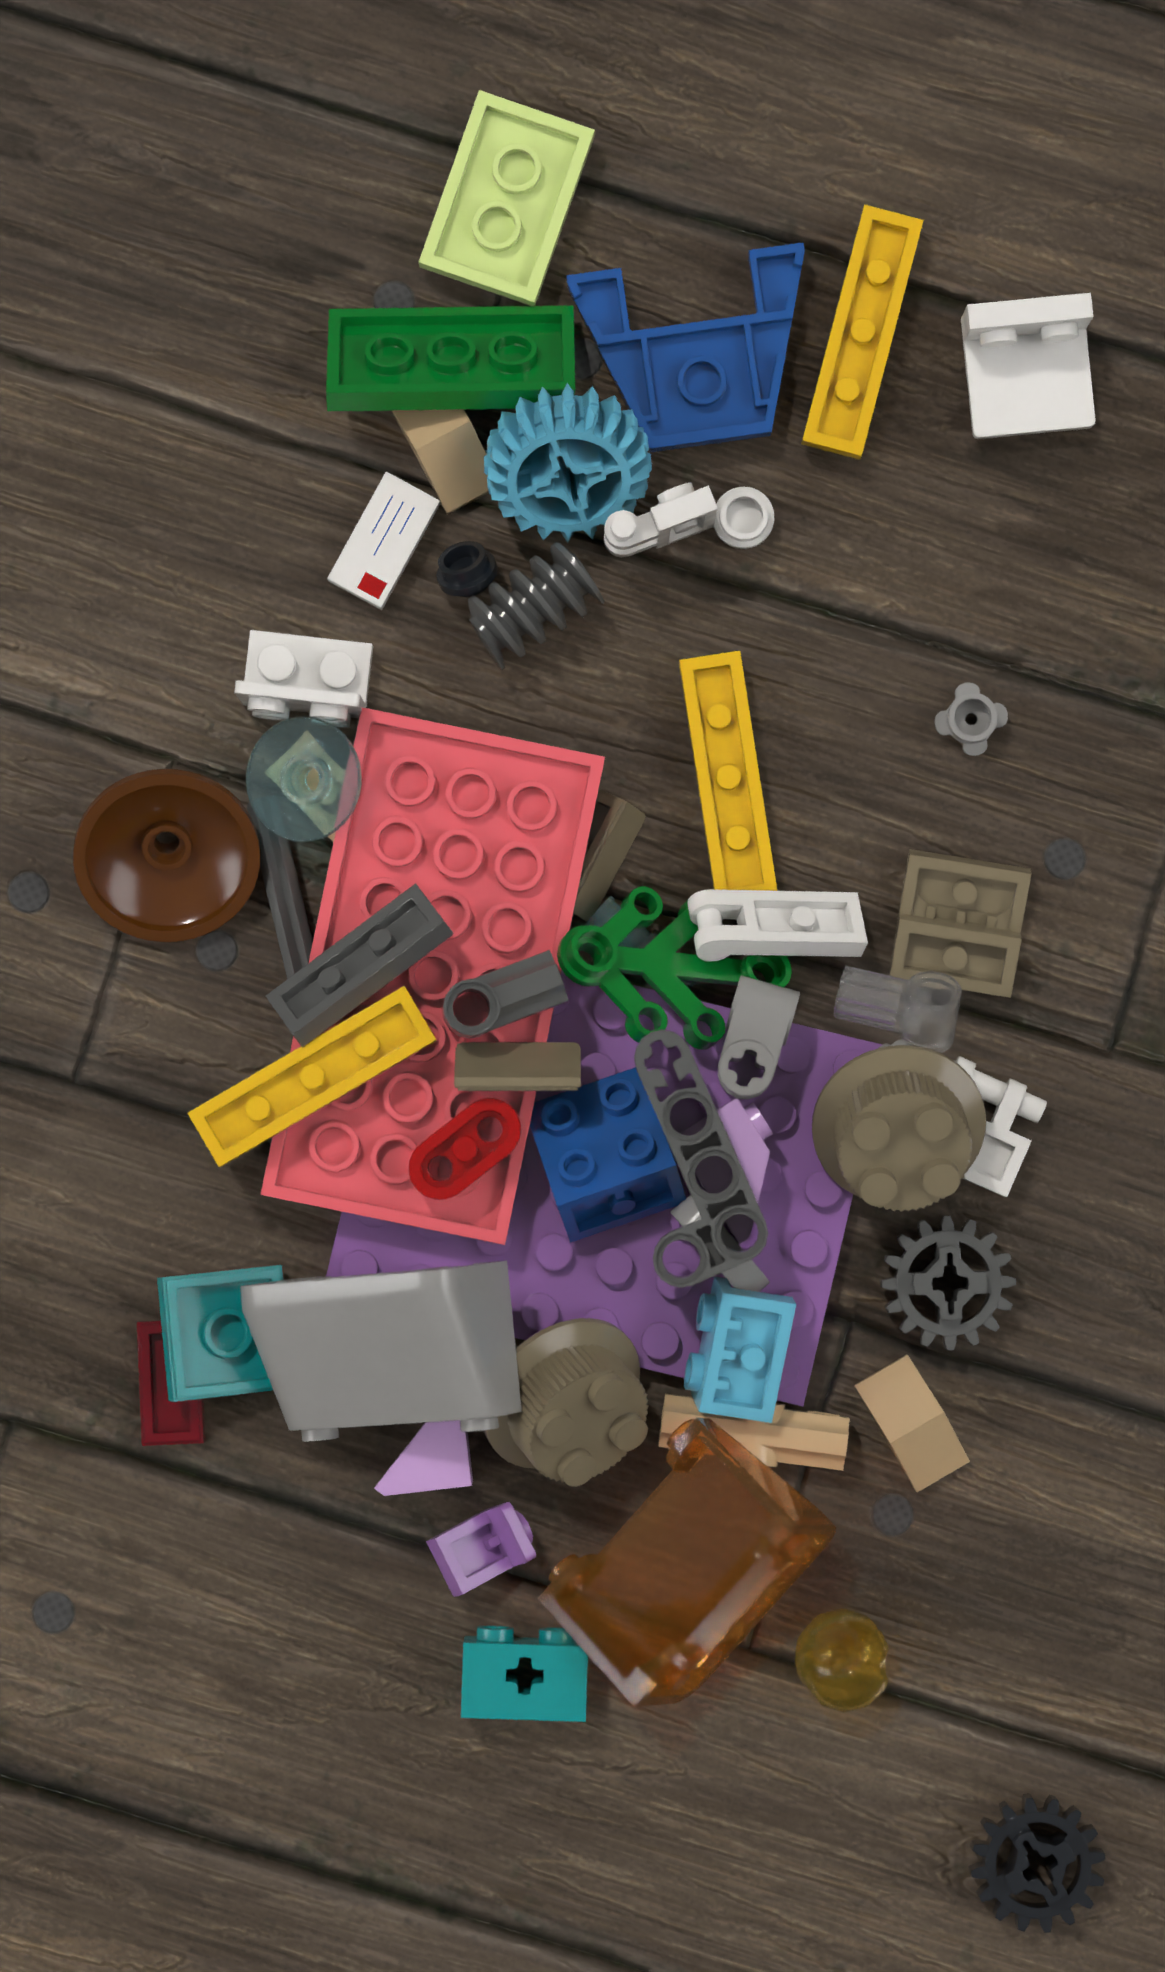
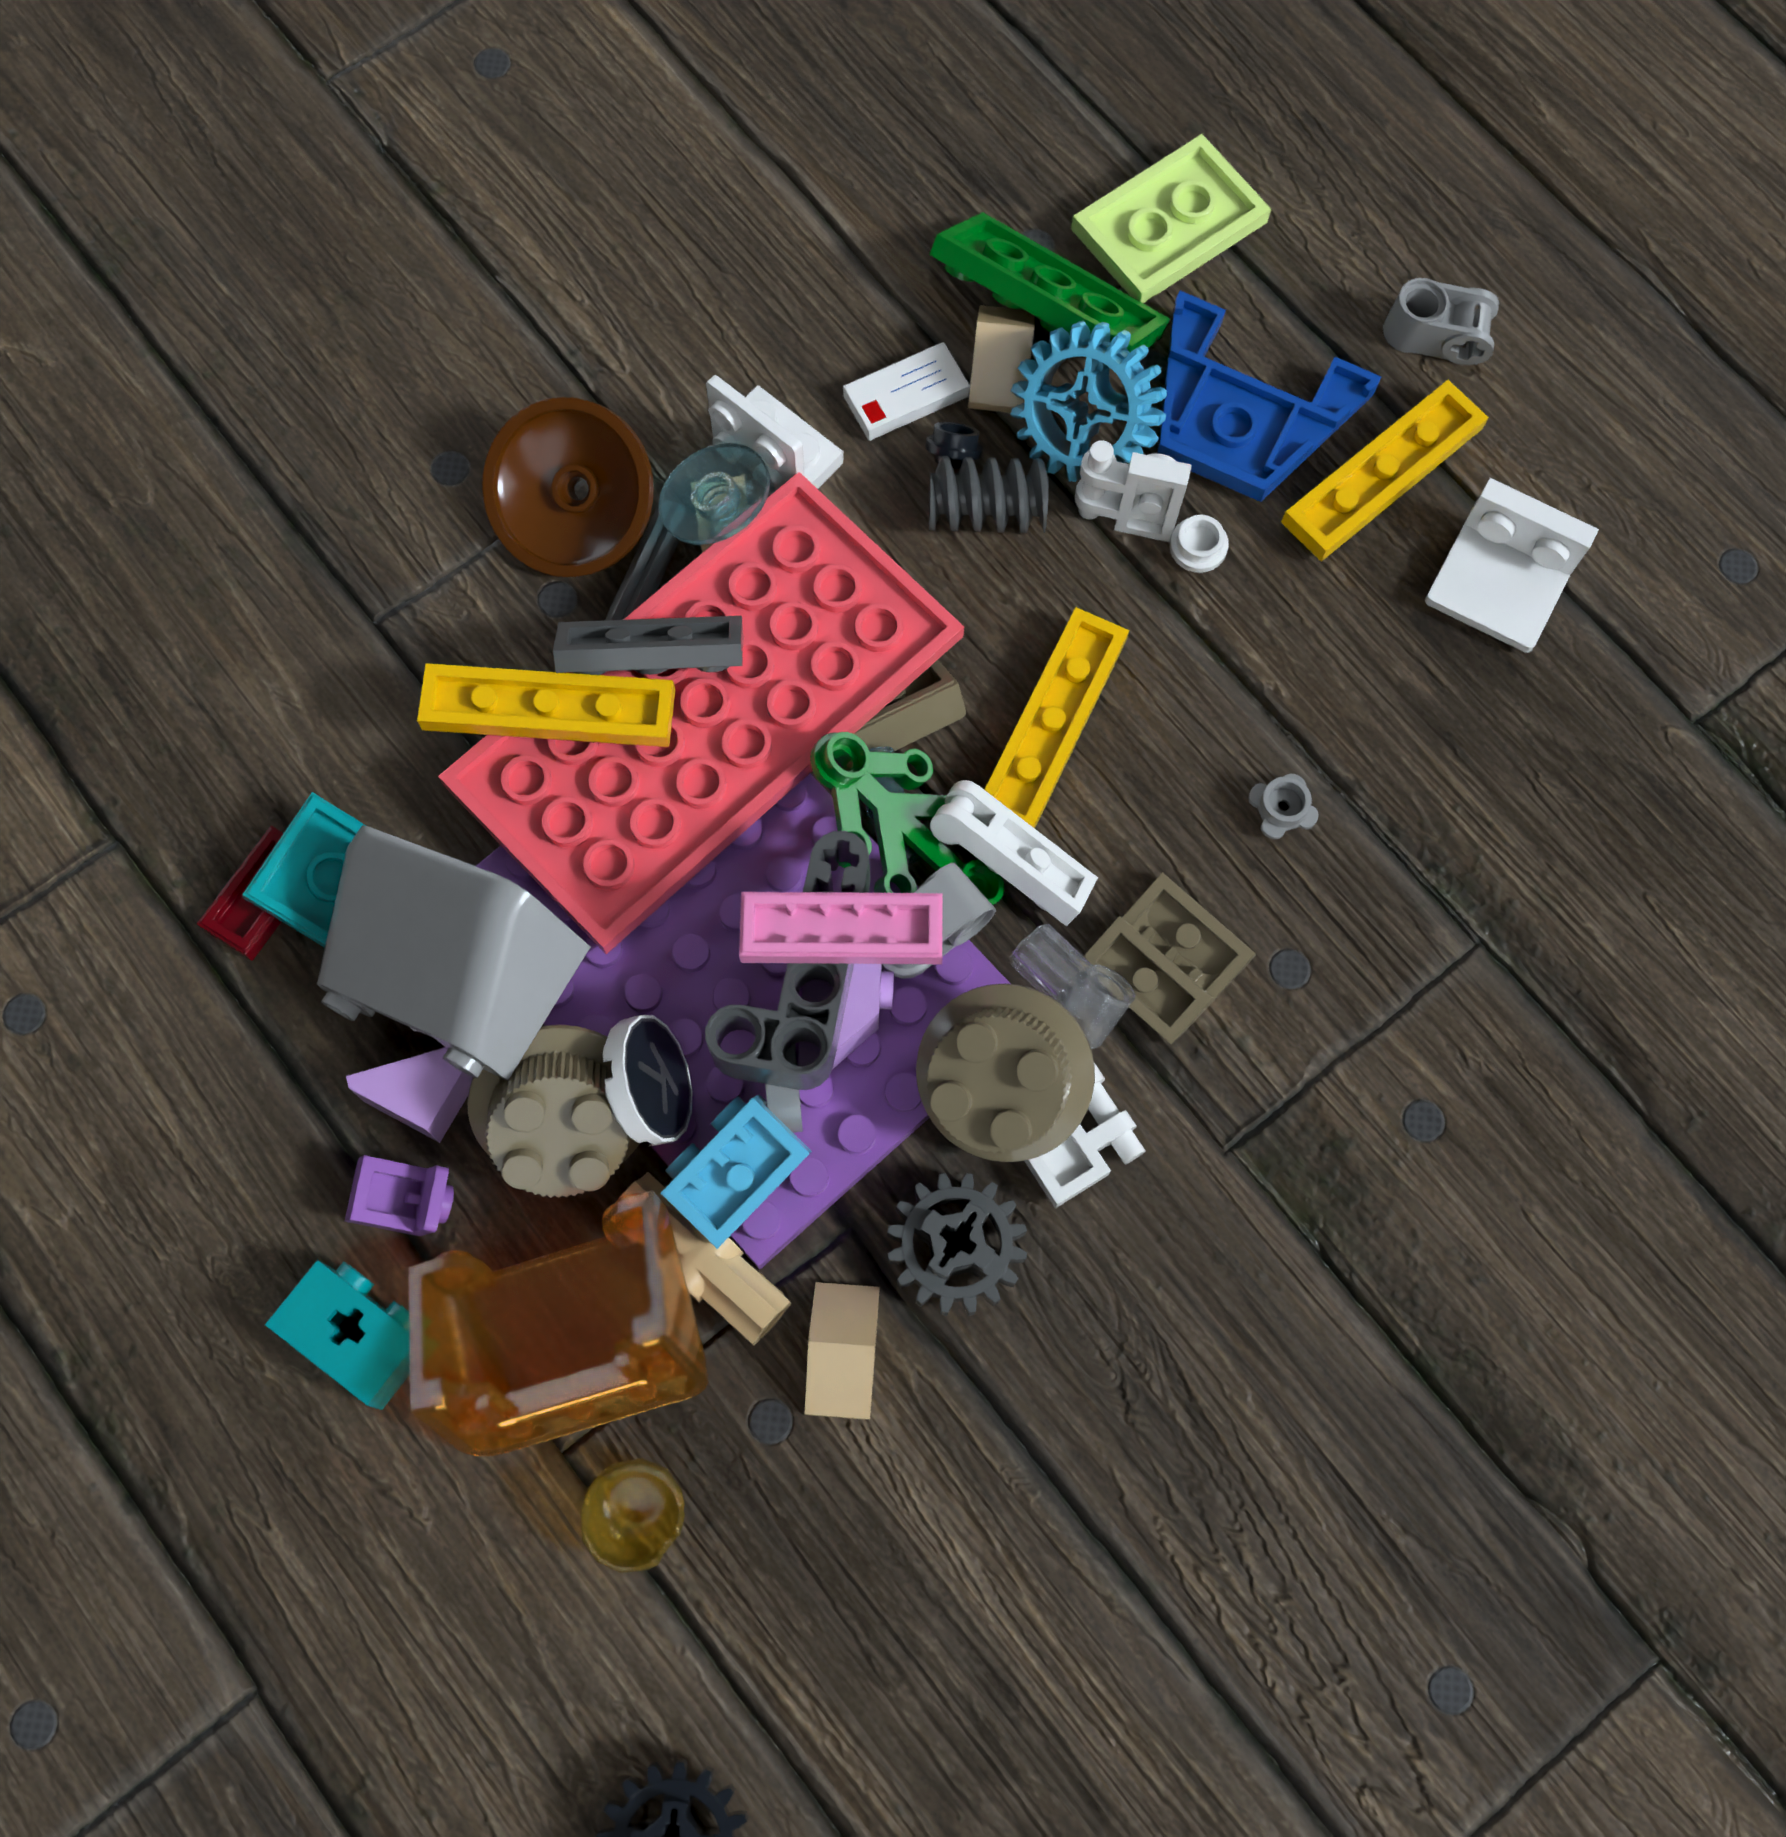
camera: 35 degrees right, 15 degrees down
(464, 1148) = (627, 839): red plate -> none
(510, 994) = (753, 741): dark grey piece -> none
(517, 1066) = (716, 810): dark tan slope -> none
(605, 1155) = (705, 939): blue bracket -> none
(625, 1329) = (649, 1080): none -> tile
(710, 1121) = (841, 928): none -> bright pink plate
(833, 134) = (1439, 319): none -> light grey piece

